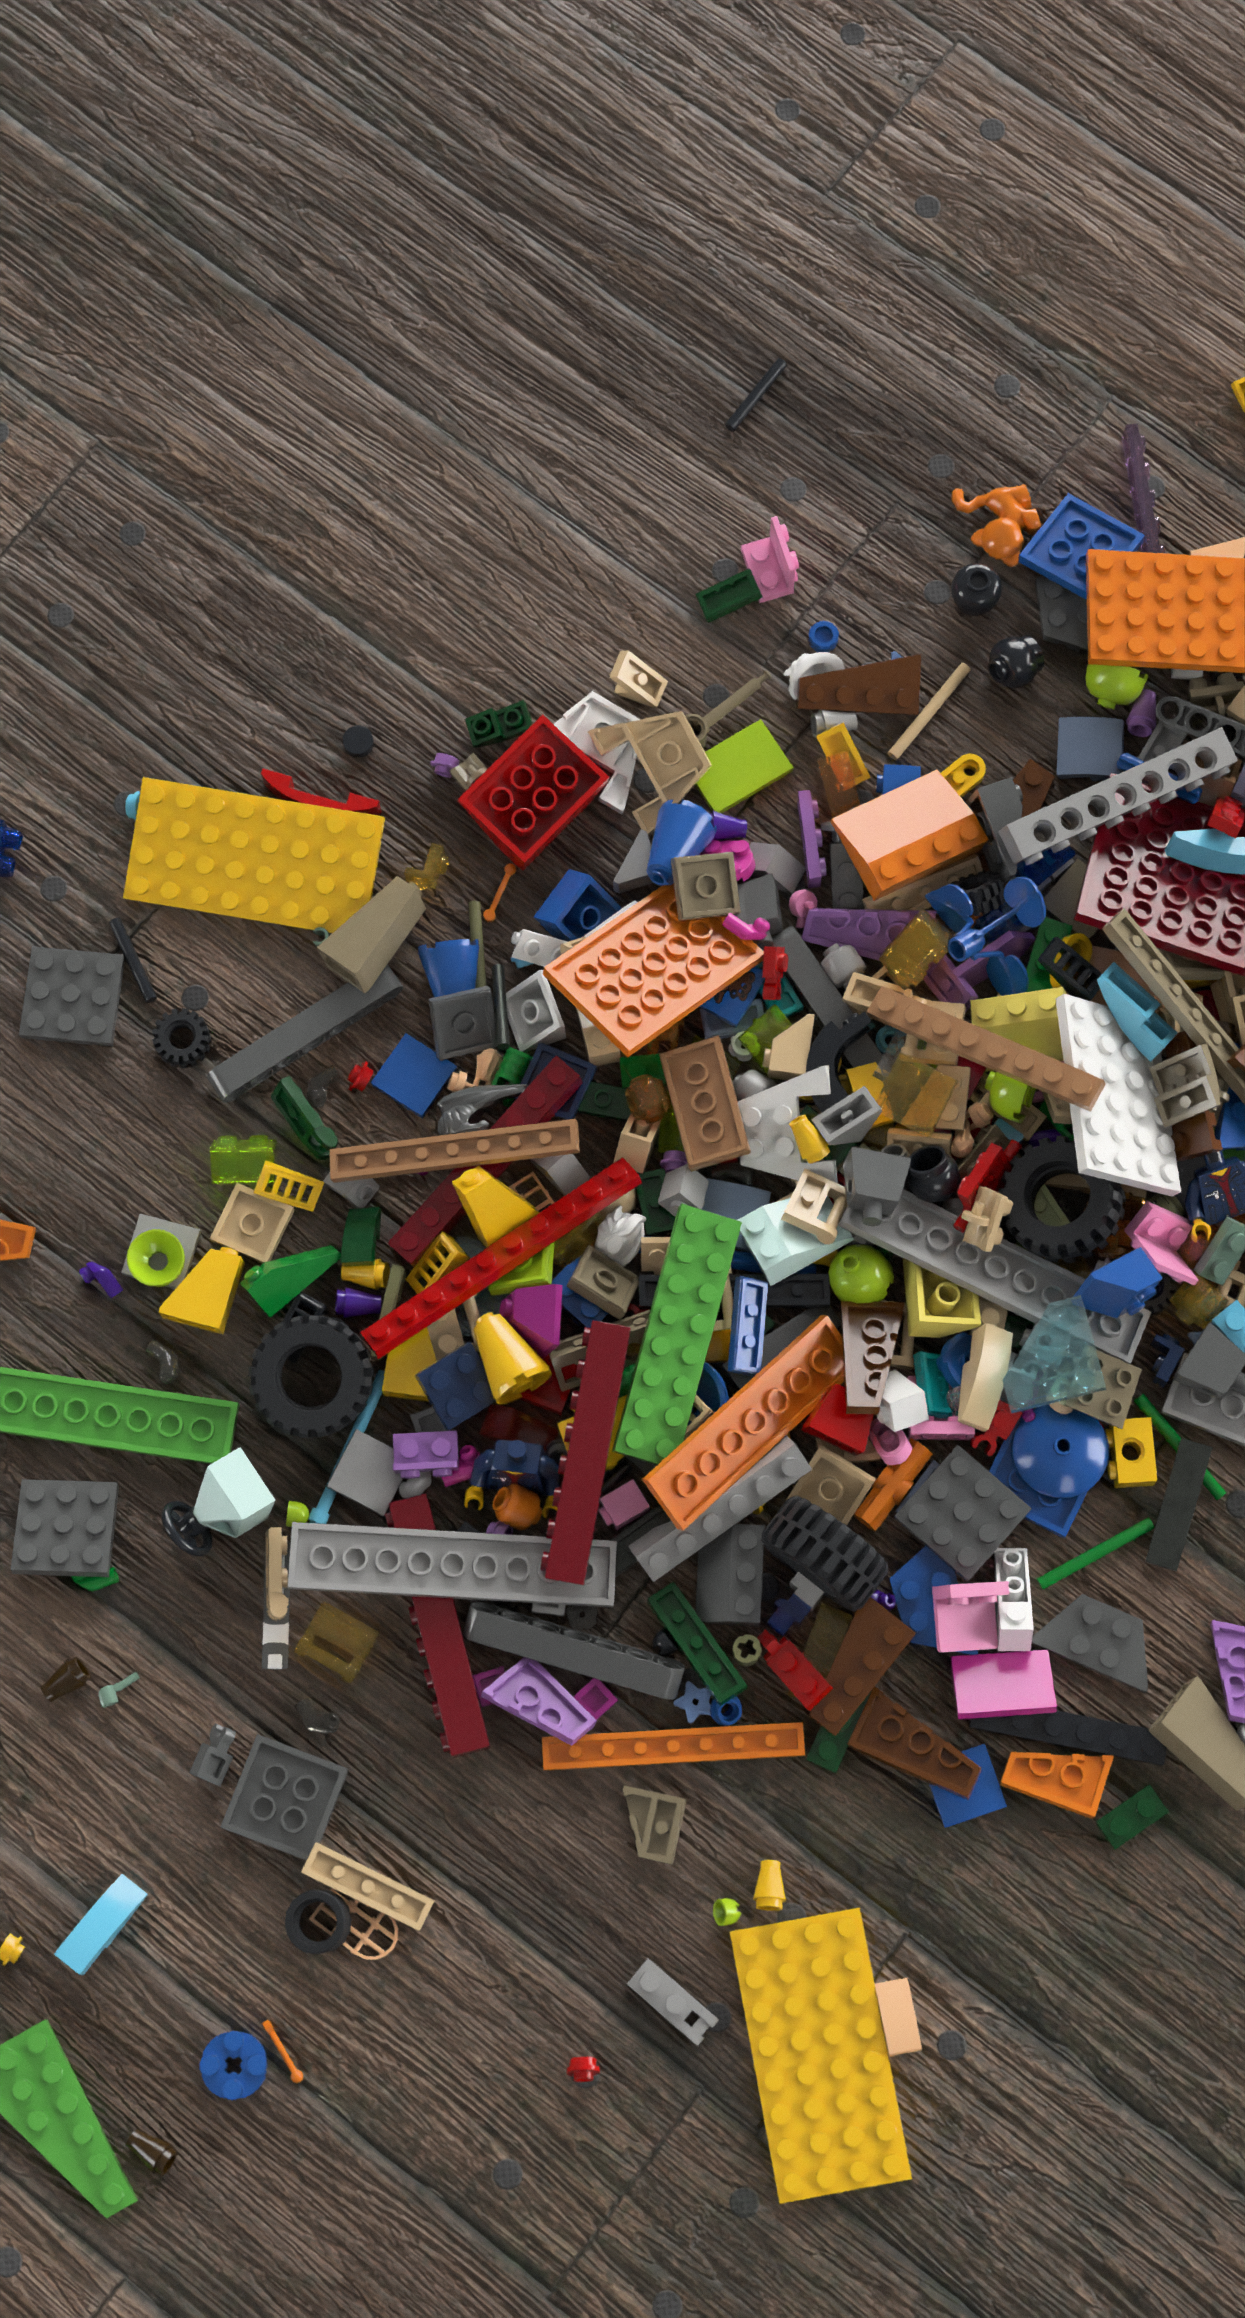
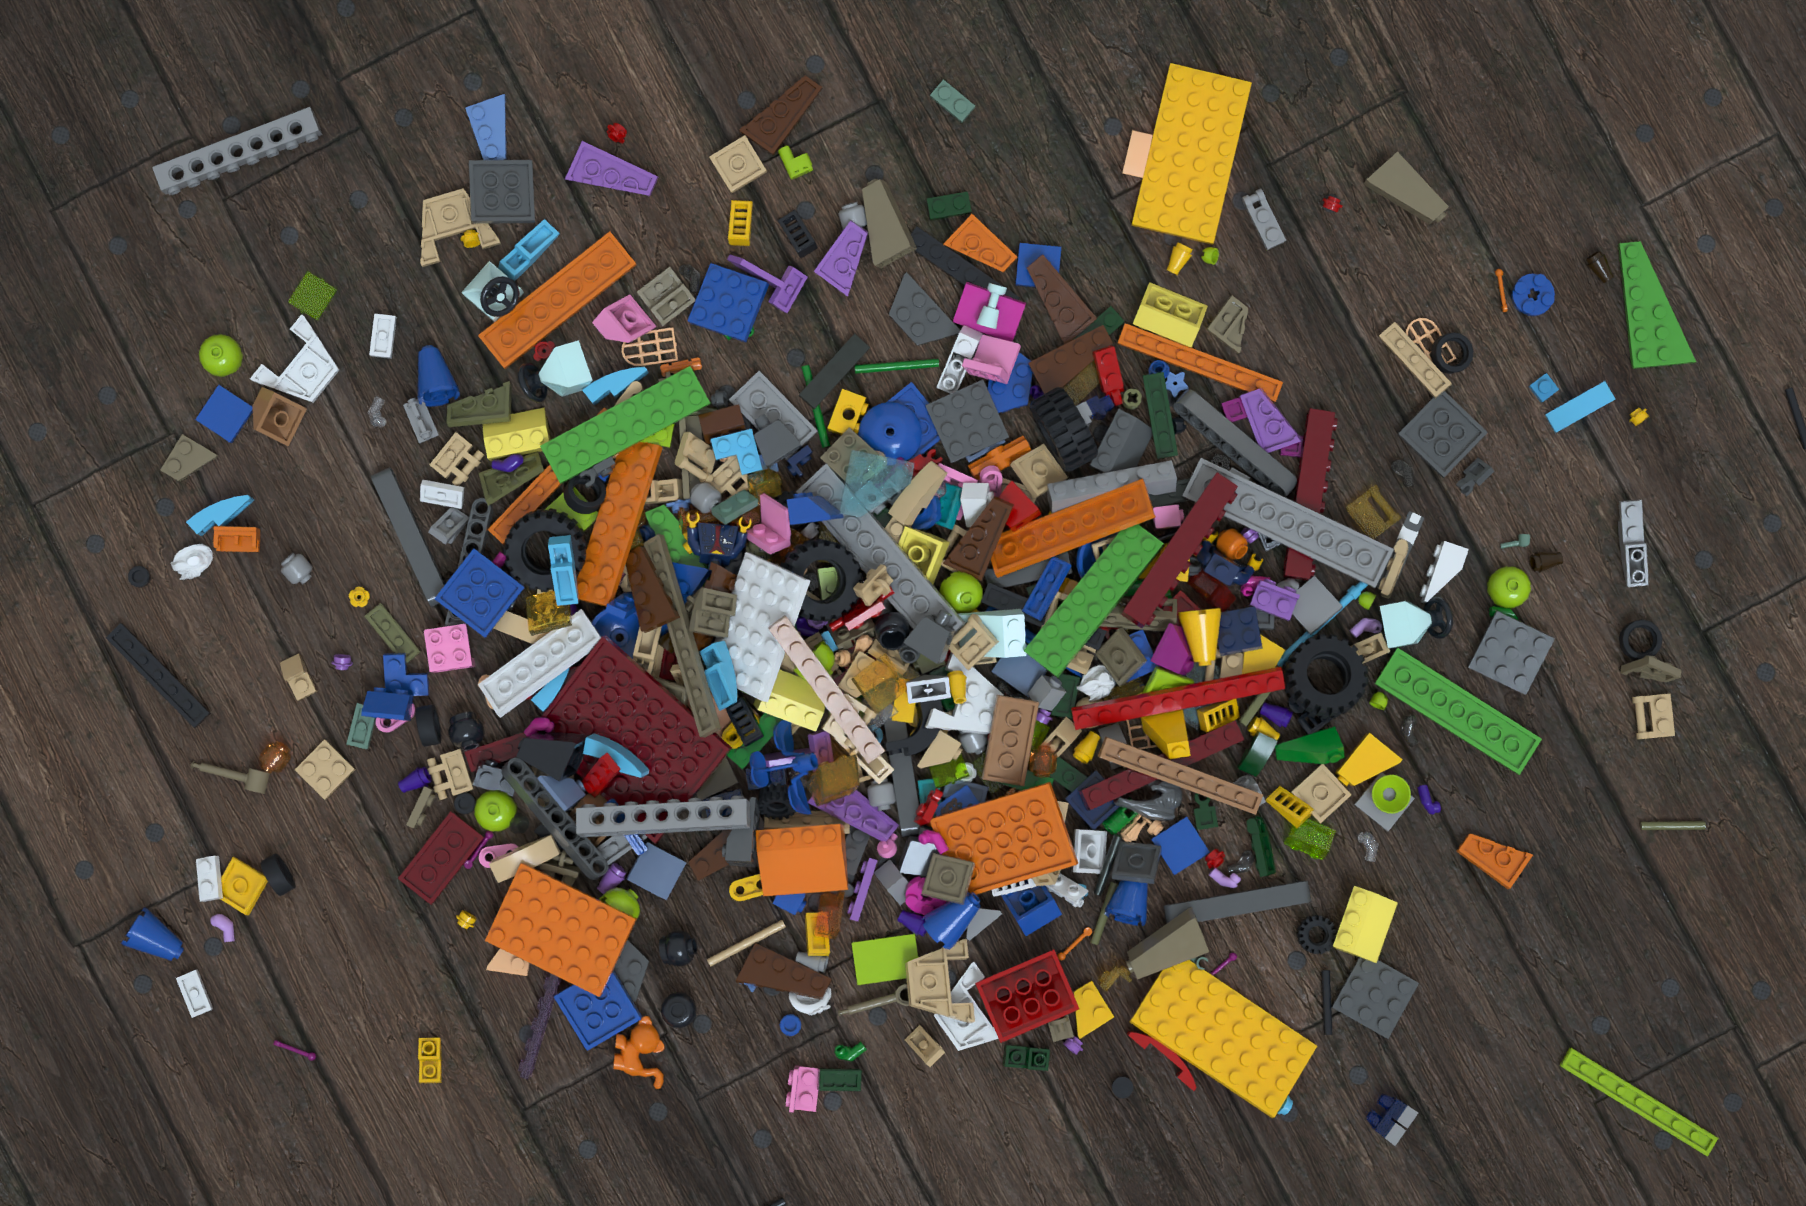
camera: 160 degrees left, 10 degrees up
(103, 1620) = (1509, 587): none -> lime cylinder
(122, 1074) = (1365, 924): none -> light yellow slope
(157, 1187) = (1371, 845): none -> clear arm
(164, 1932) = (1543, 387): none -> dark azure plate
(203, 1608) = (1447, 564): none -> white slope
(222, 1384) = (1379, 701): none -> lime hinge
(264, 1446) = (1372, 647): none -> tan slope
(283, 964) = (1232, 957): none -> magenta hinge
(284, 1479) = (1368, 625): none -> lavender arm
(335, 1055) = (1223, 880): none -> lavender arm
(396, 1124) = (1204, 816): none -> dark green plate
(442, 819) = (1092, 1010): none -> yellow wing
(483, 2141) = (1407, 189): none -> dark tan slope
(596, 1146) = (1086, 748): none -> yellow cone
(730, 634) = (848, 1053): none -> green arm
(746, 1797) = (1170, 315): none -> light yellow slope
(1002, 1678) = (989, 315): none -> light aqua piece
(1199, 1975) = (952, 101): none -> sand green plate

